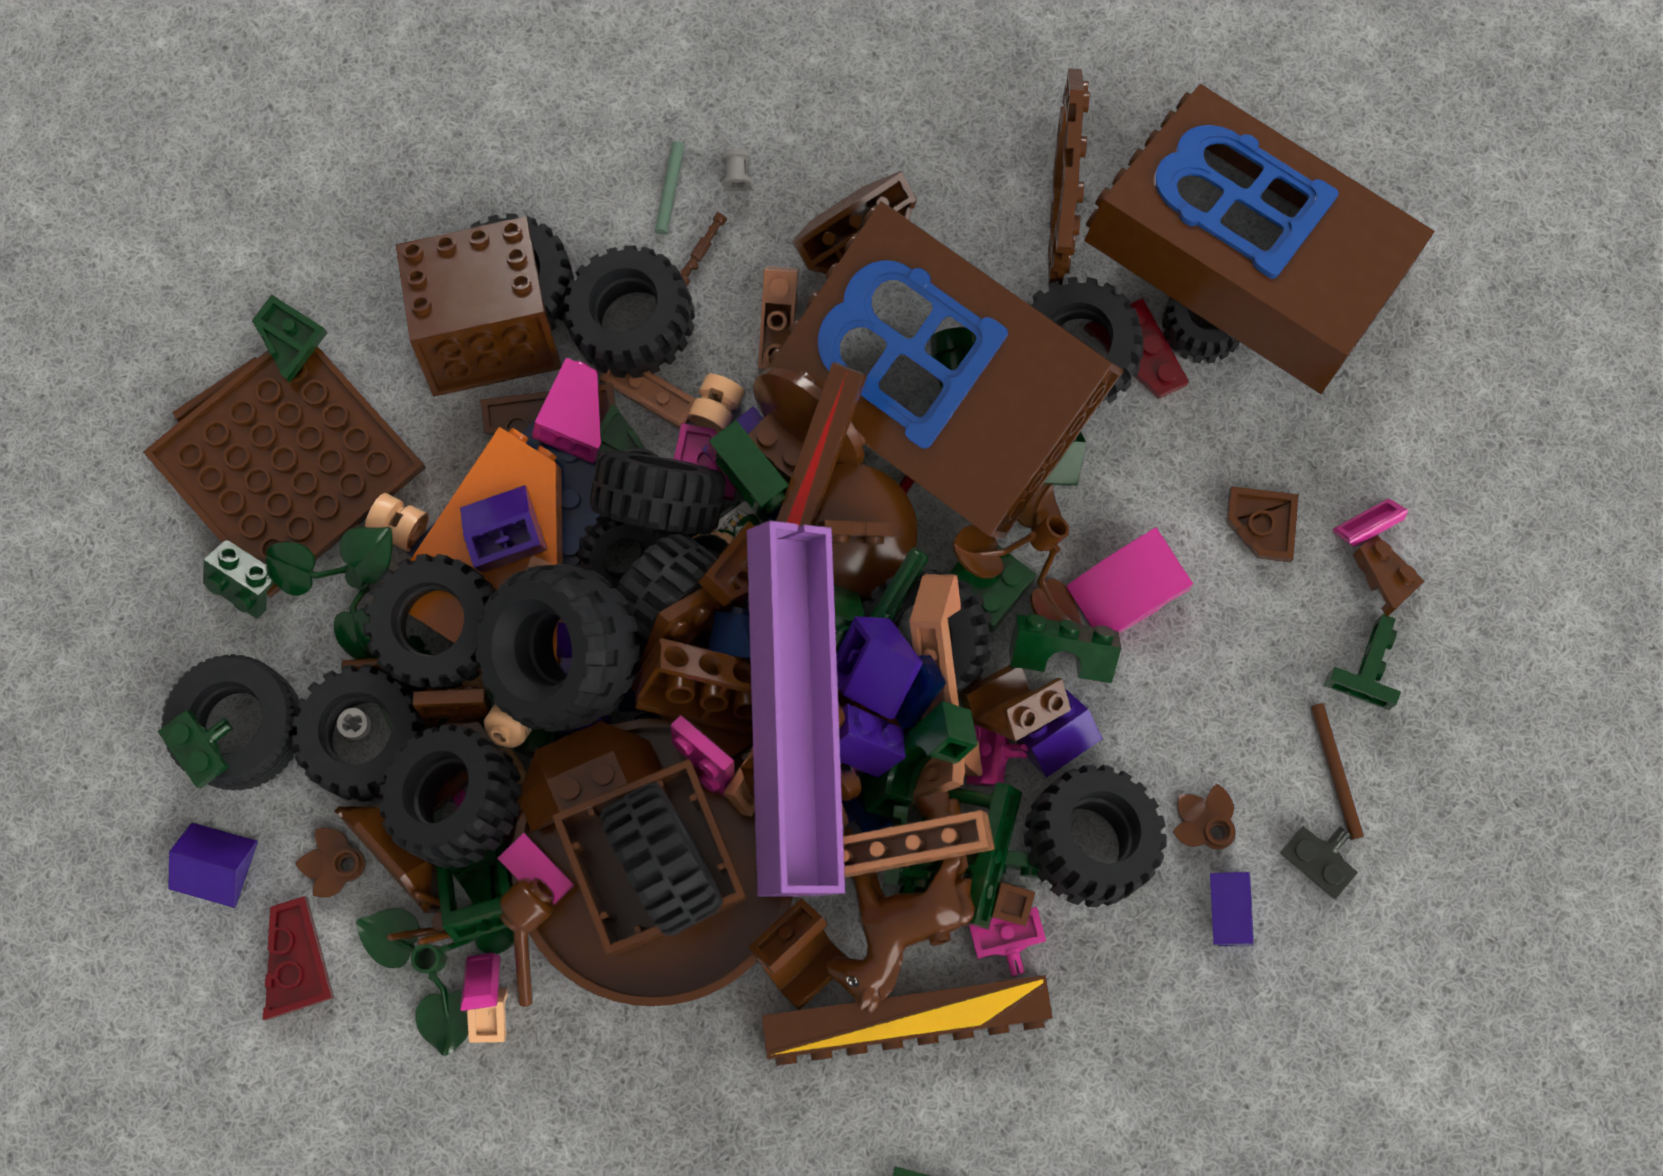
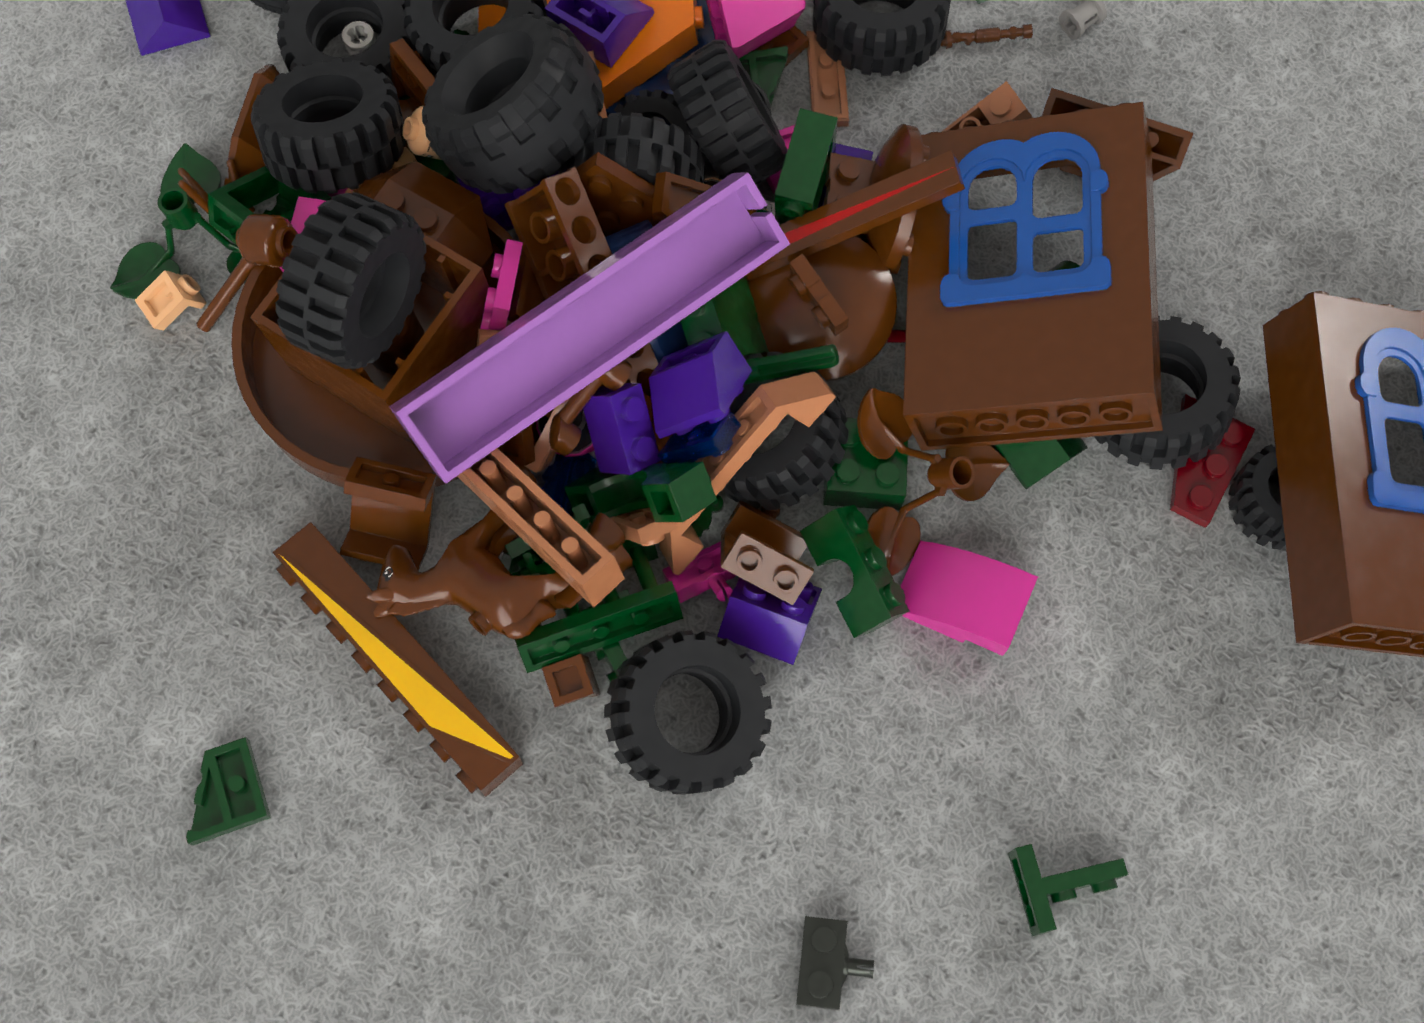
camera: 50 degrees right, 5 degrees down
(295, 962) = (121, 126): dark red wing -> none
(327, 862) = (222, 98): reddish brown plate -> none
(480, 981) = (191, 271): dark pink tile -> none
(717, 401) = (862, 129): light nougat wheel -> none
(1008, 939) = (535, 705): dark pink plate -> none
(1065, 182) = (1240, 308): reddish brown plate -> none
(1203, 815) = (788, 815): reddish brown plate -> none
(1232, 909) = (712, 903): dark purple hinge -> none
(1264, 521) = (1128, 684): reddish brown plate -> none
(1337, 771) = (929, 922): reddish brown bar -> none
(1371, 522) = (1209, 790): dark pink tile -> none
(1387, 573) = (1169, 839): reddish brown wing -> none

